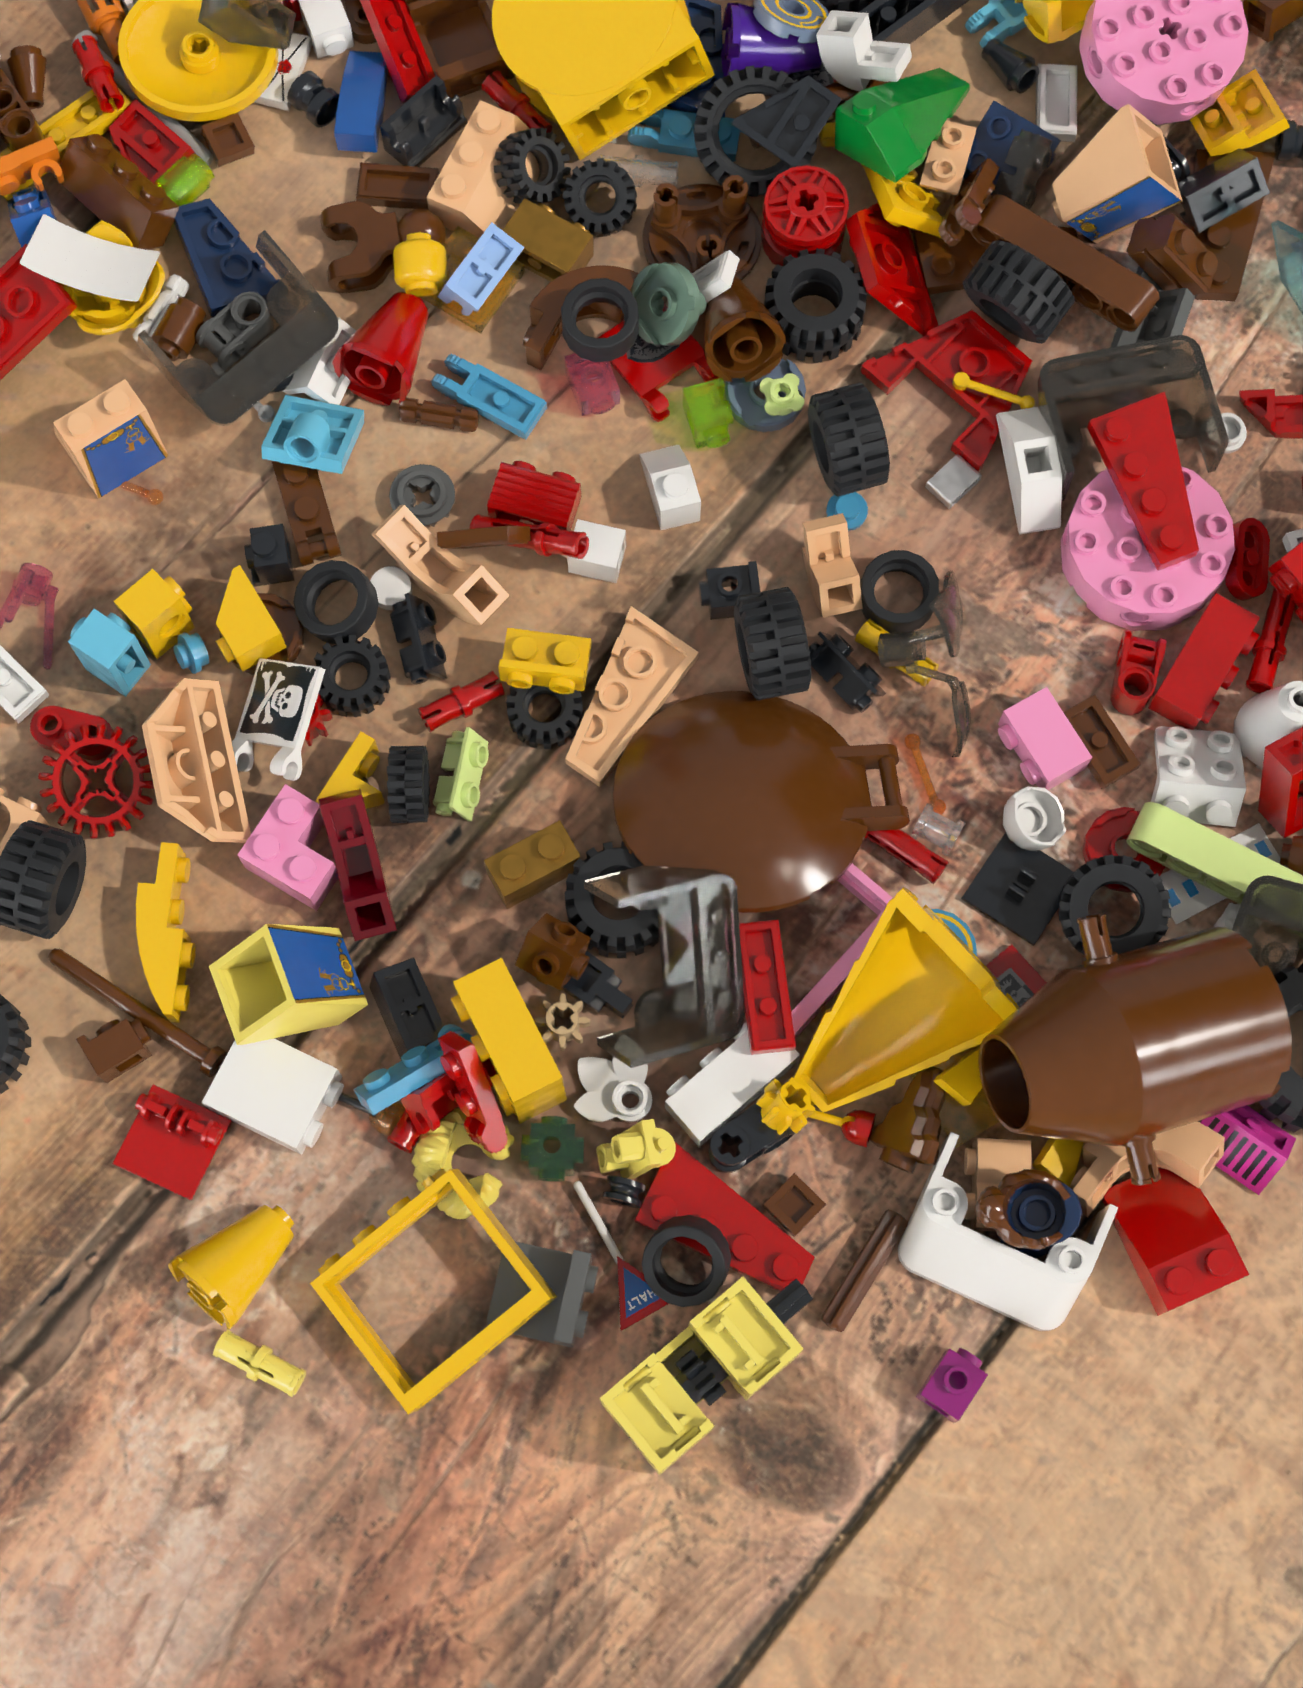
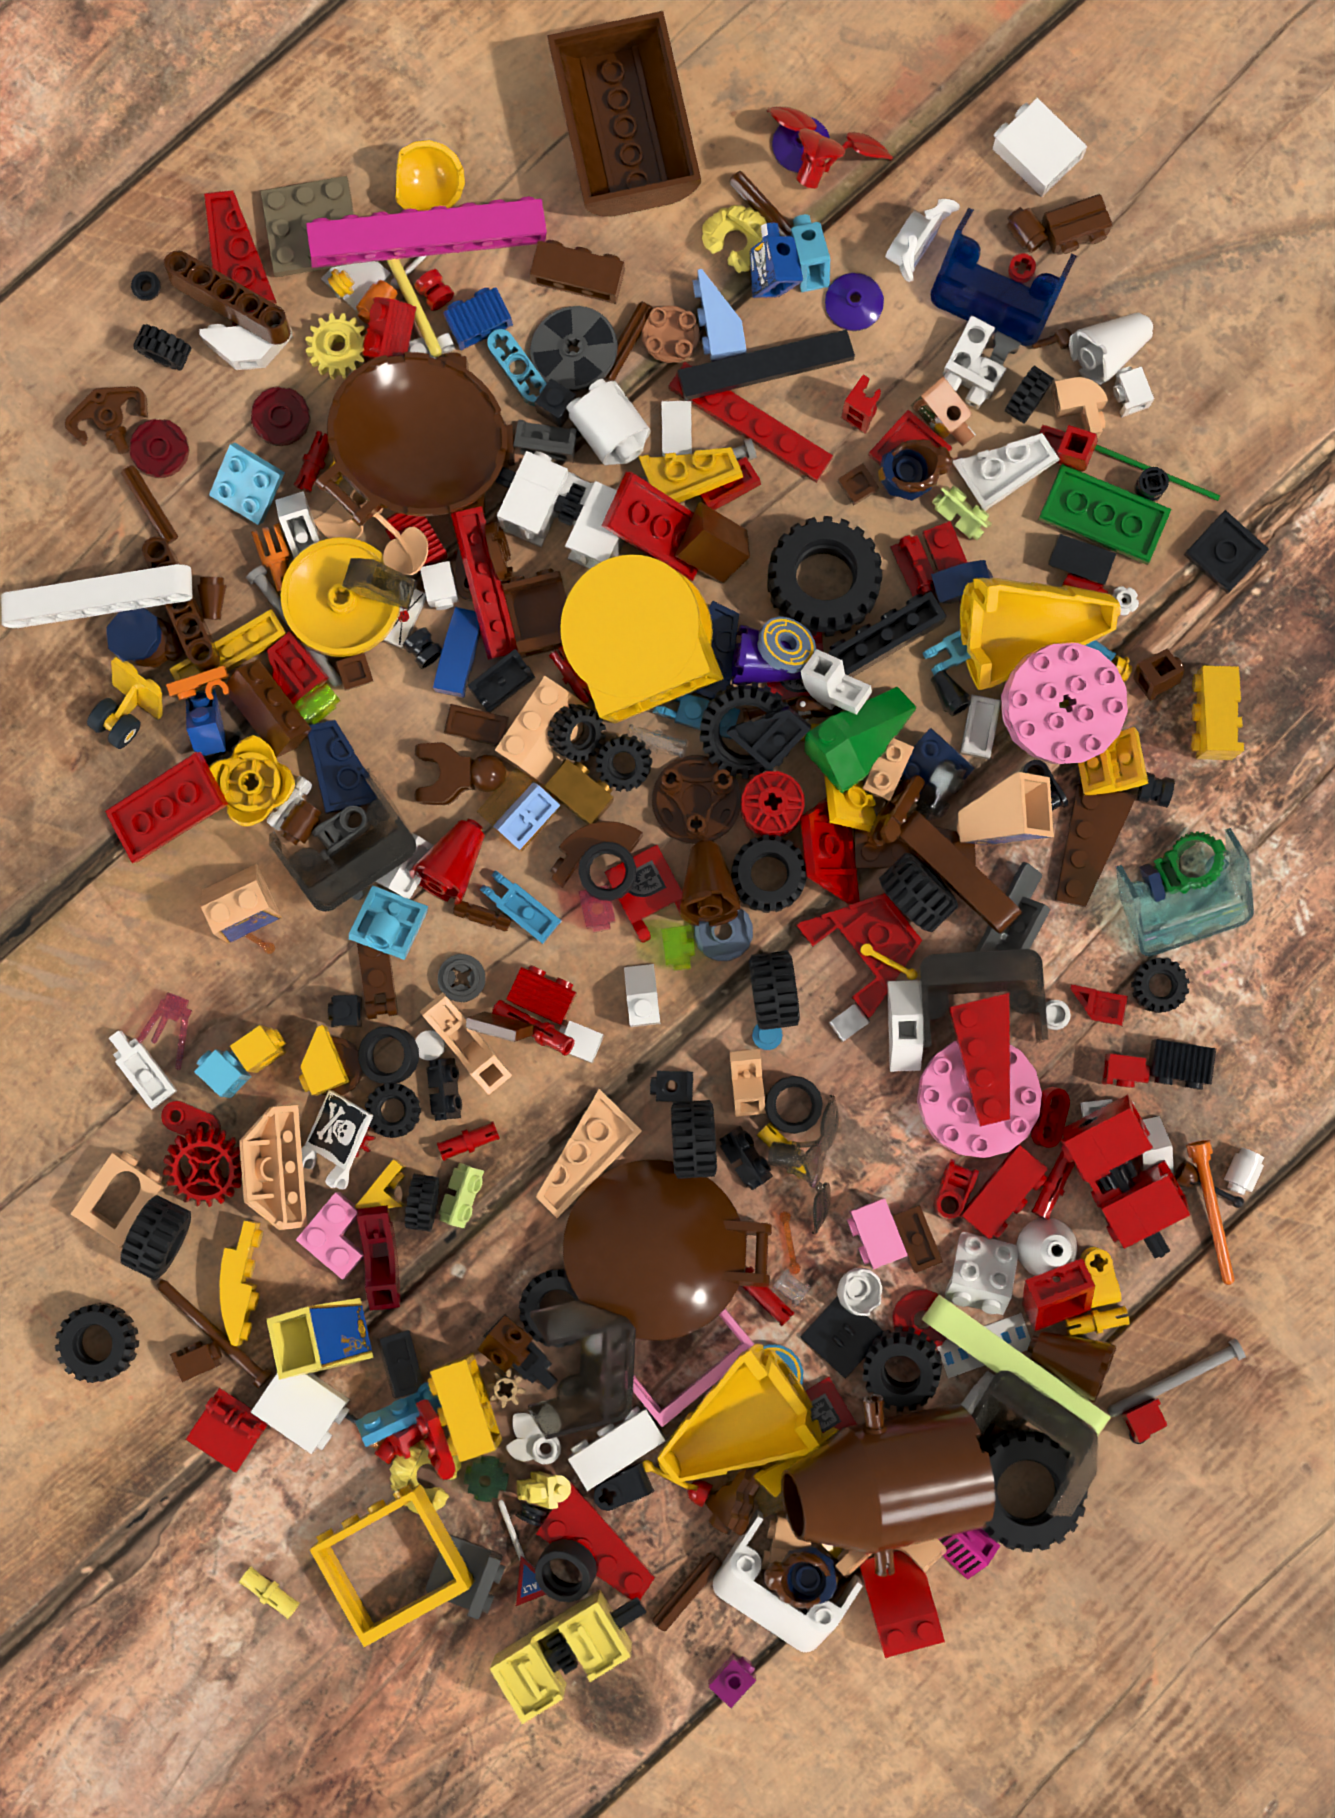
camera: 15 degrees right, 10 degrees up
(88, 261) = (240, 769): white sticker -> none
(98, 74) = (263, 608): red pin -> none
(191, 652) = (281, 1076): dark azure plate -> none
(234, 1263) = (261, 1524): yellow cone -> none
(420, 265) = (482, 805): yellow head -> none
(532, 864) = (501, 1272): pearl gold brick -> none
(543, 732) = (509, 1148): black tyre -> none
(545, 660) = (530, 1125): yellow bracket -> none
(684, 303) = (671, 865): sand green plate -> none
(716, 275) = (688, 850): white tile -> none
(765, 988) = (648, 1390): red tile -> none
(779, 405) = (727, 935): yellowish green plate -> none
(785, 1106) = (641, 1481): yellow gear -> none
(794, 1205) = (646, 1540): reddish brown plate -> none
(1172, 254) = (1039, 877): reddish brown brick -> none
(1221, 189) = (1086, 825): black hinge -> none

